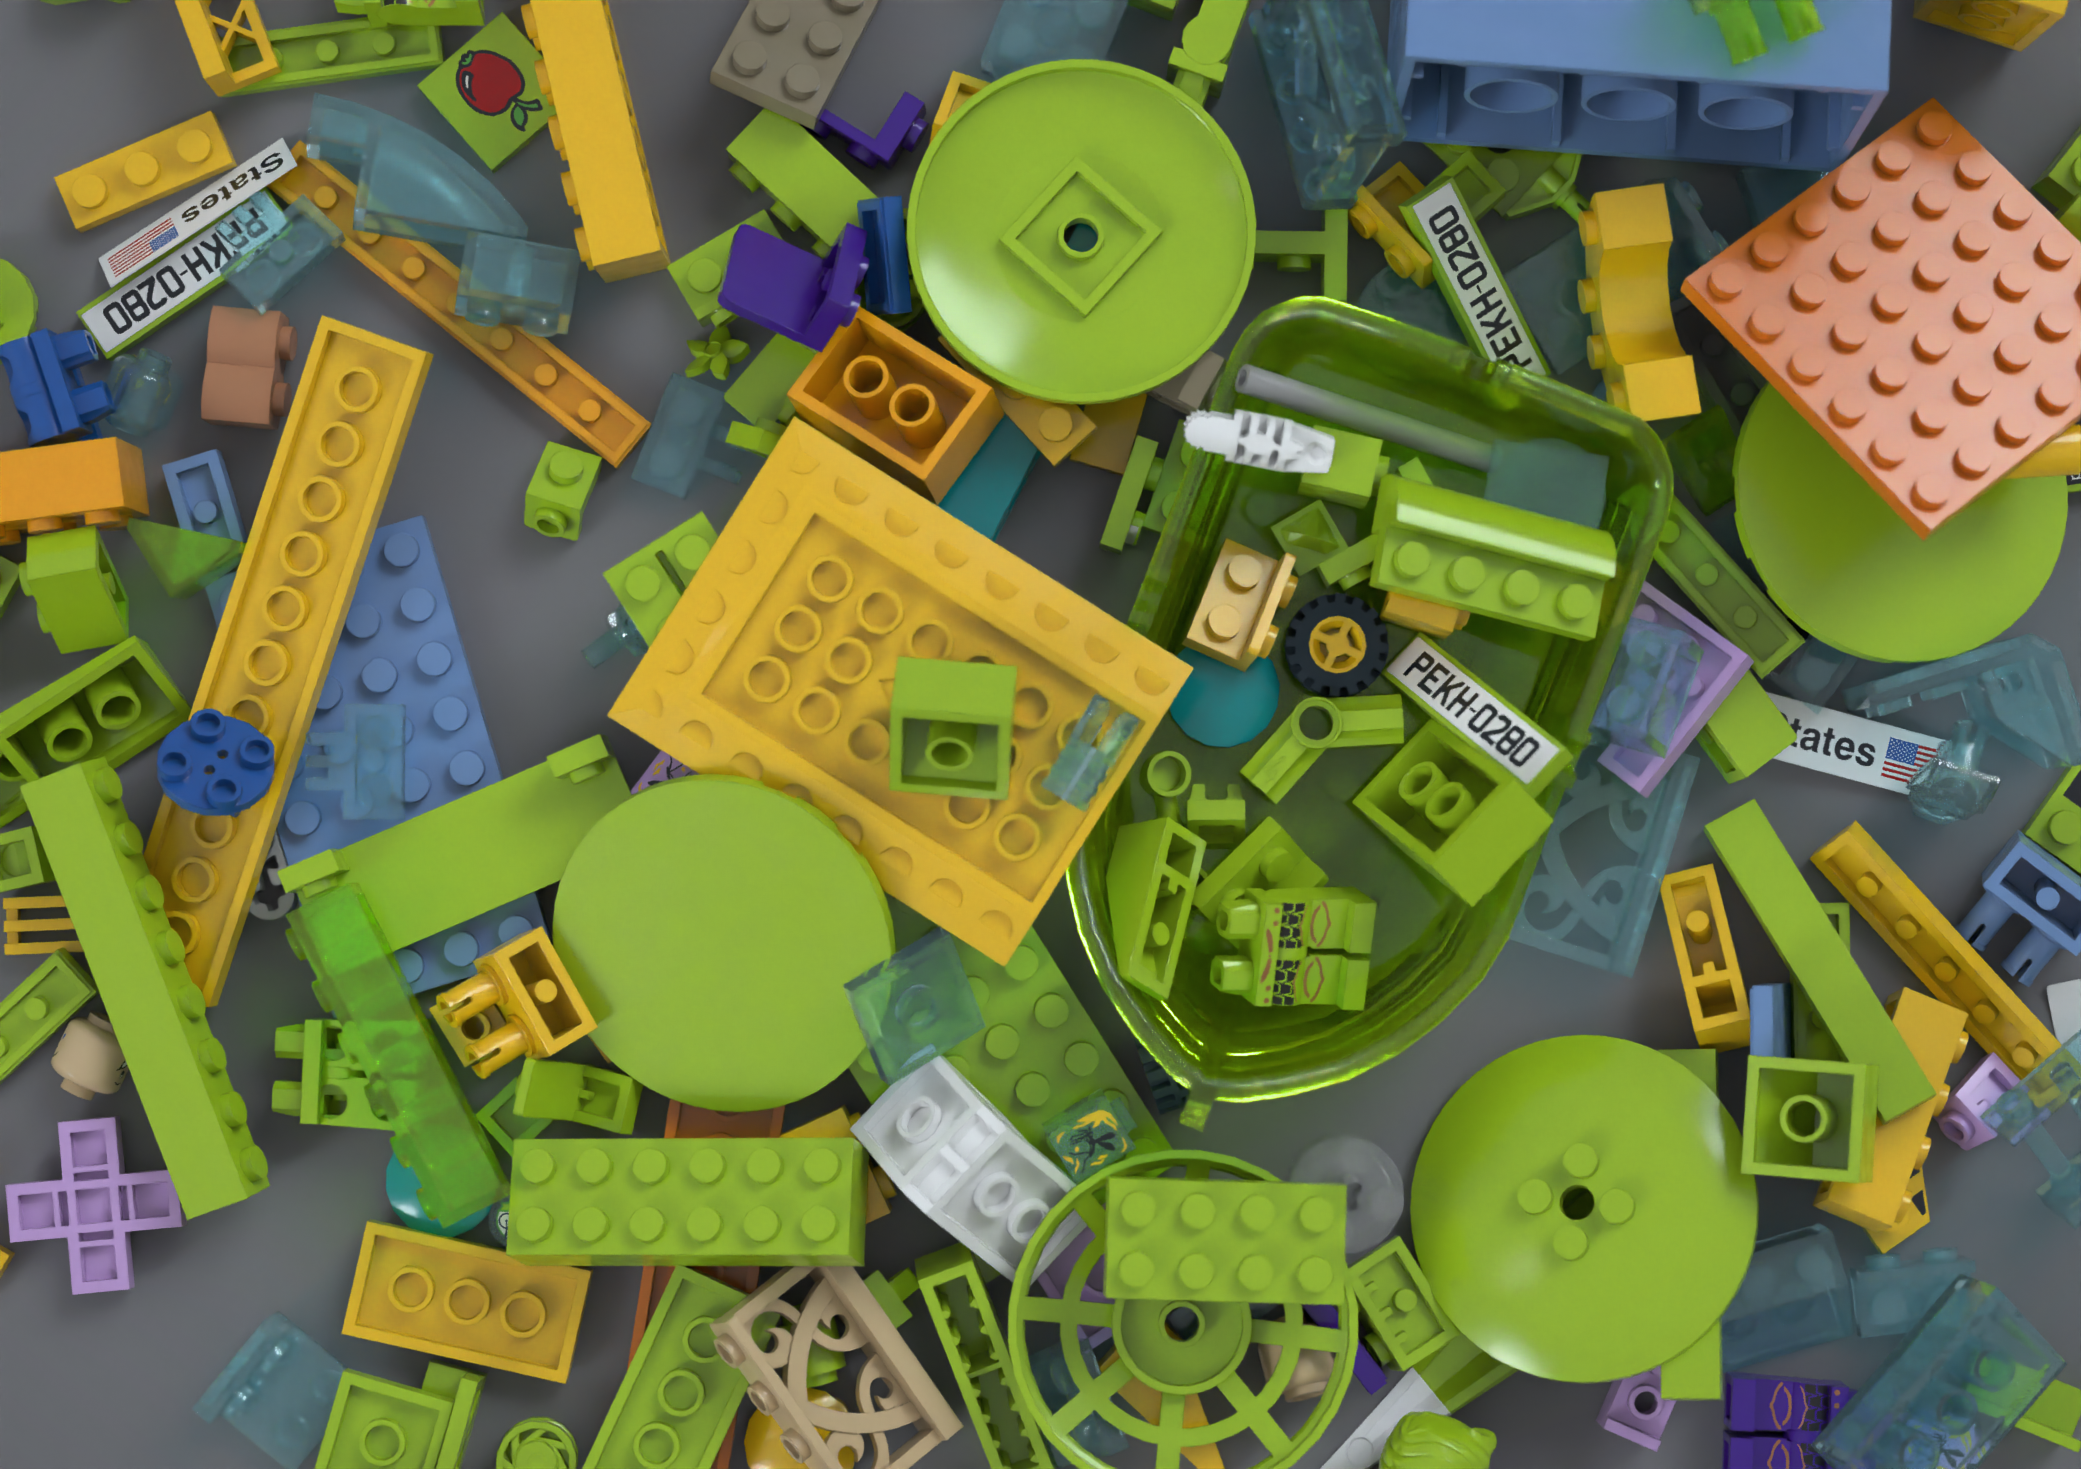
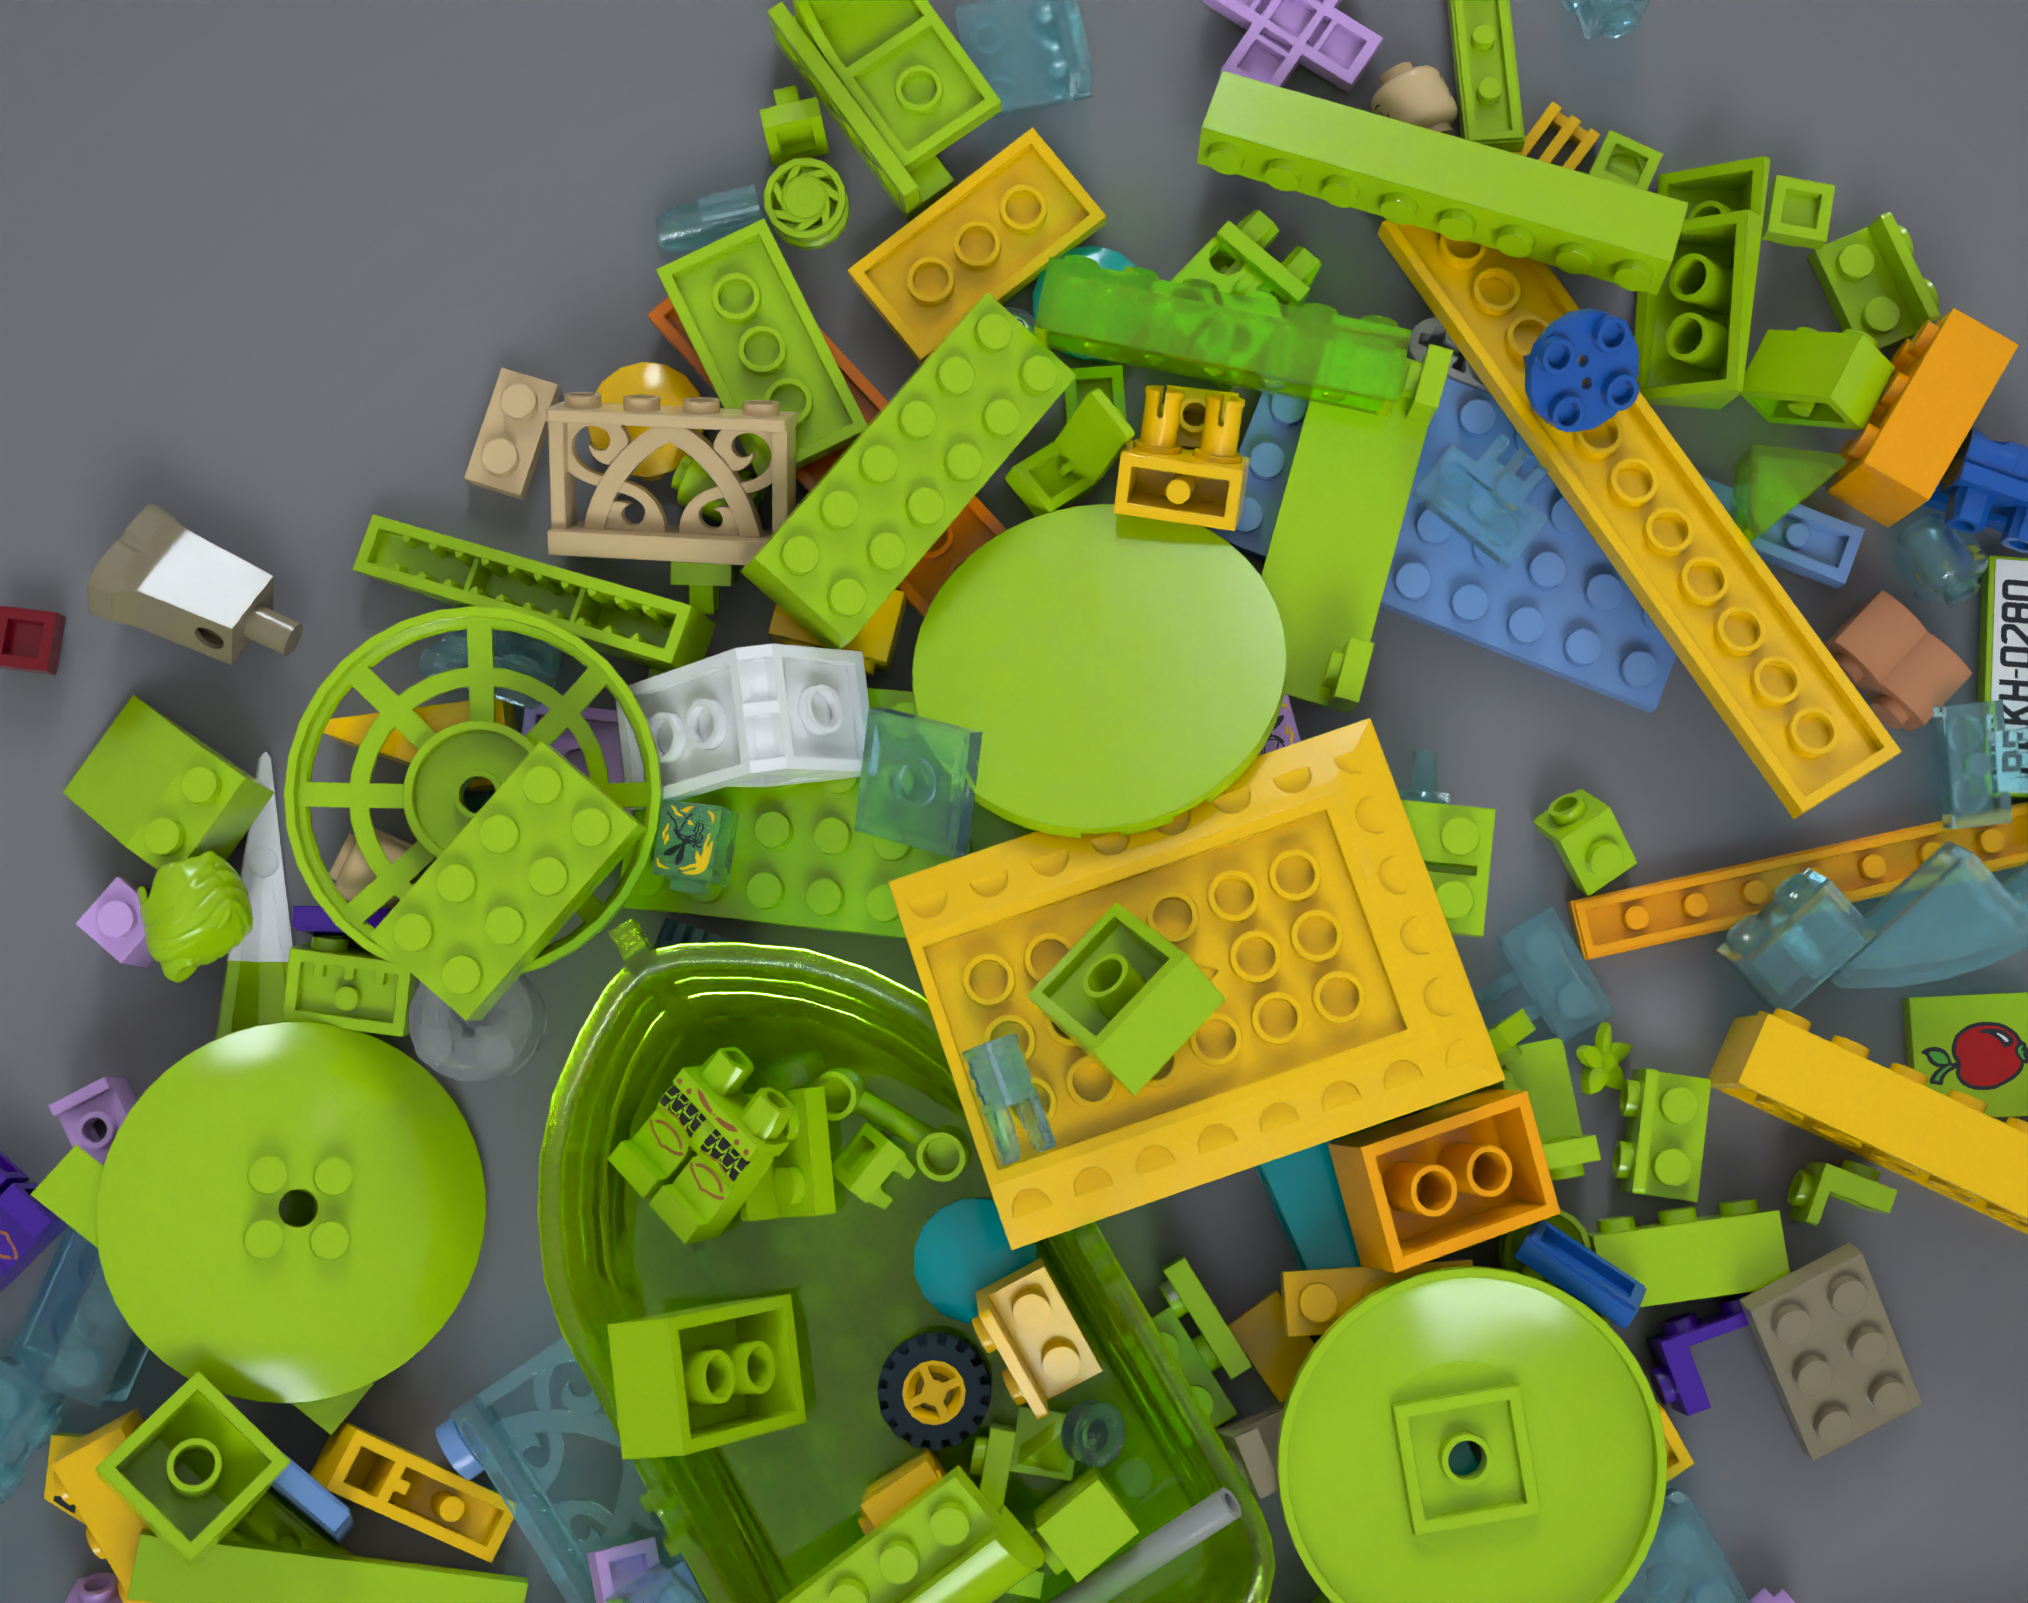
camera: 130 degrees right, 5 degrees down
(662, 110) = (1850, 1184): none -> lime bracket
(793, 288) = (1616, 1169): dark purple bracket -> none
(1151, 898) = (845, 1052): lime slope -> none
(1261, 440) = (1161, 1473): white hinge -> none
(1275, 509) = (1093, 1433): none -> clear light blue tile
(1354, 723) = (856, 1350): lime piece -> none
(1477, 714) = (772, 1466): tile -> none
(1652, 951) = (458, 1450): none -> medium blue tile

